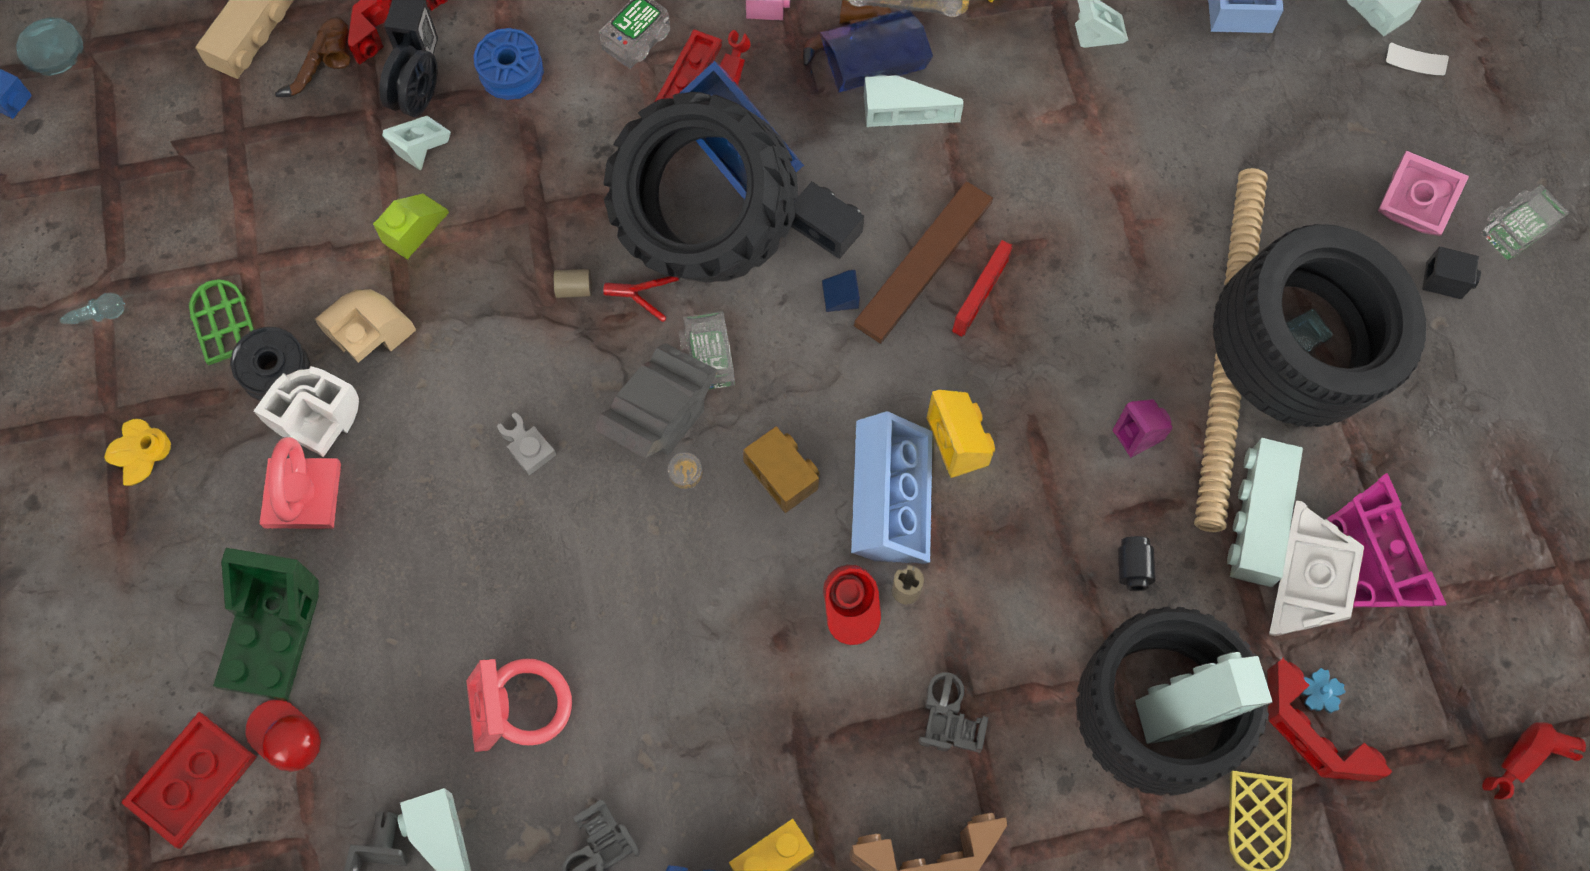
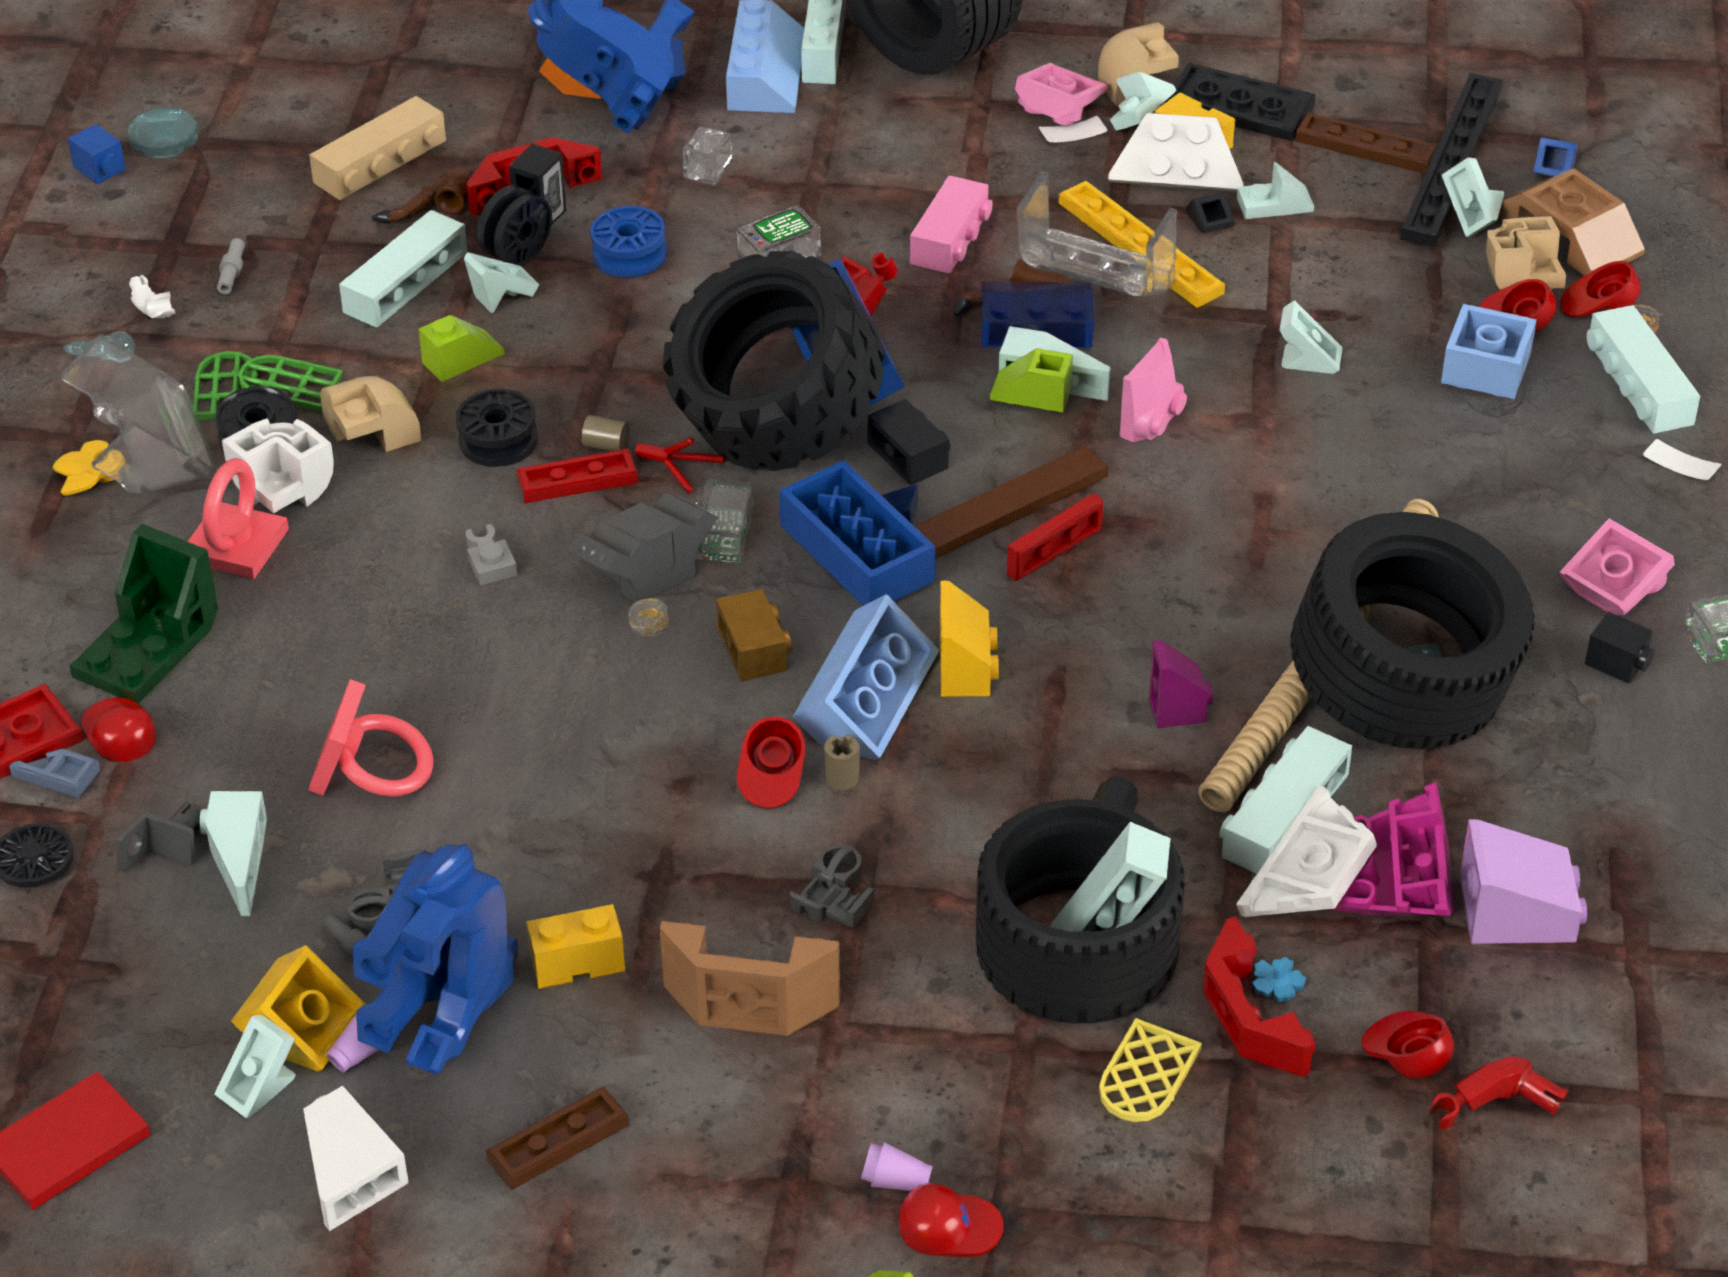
camera: 20 degrees right, 25 degrees down
(110, 244) = (147, 301): none -> white piece
(172, 184) = (230, 266): none -> light grey bar
(180, 386) = (159, 429): none -> clear windscreen
(251, 803) = (60, 771): none -> sand blue tile
(285, 292) = (278, 370): none -> bright green window
(326, 148) = (403, 268): none -> light aqua brick
(473, 286) = (497, 427): none -> black wheel
(564, 333) = (577, 475): none -> red tile
(827, 340) = (857, 534): none -> blue brick
(903, 126) = (1036, 380): none -> lime slope
(1007, 116) = (1151, 395): none -> bright pink slope
(1450, 730) = (1411, 1042): none -> red cap
(1474, 550) = (1518, 888): none -> lavender slope

